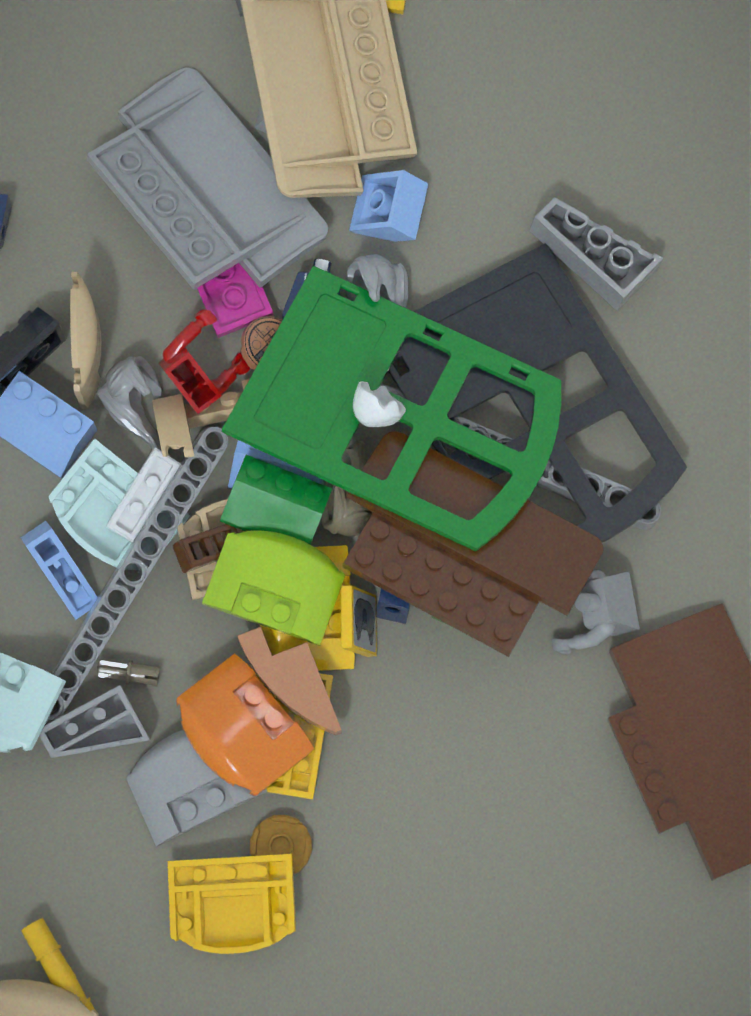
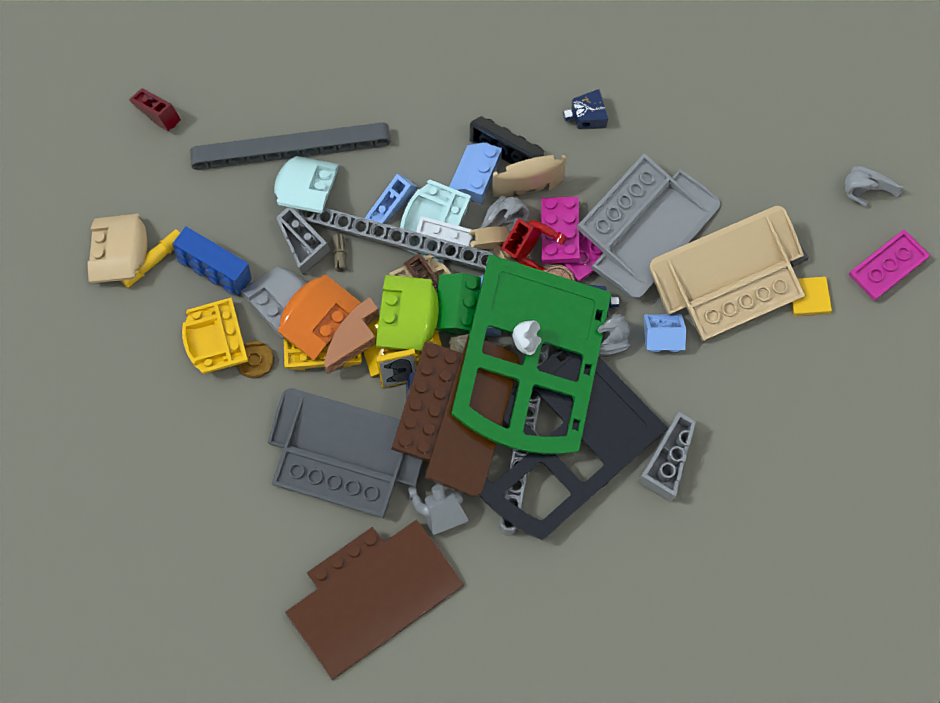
camera: 75 degrees right, 10 degrees down
(99, 879) = (212, 261): none -> blue brick
(161, 310) = (563, 216): none -> dark pink plate
(477, 743) = (339, 452): none -> dark grey slope

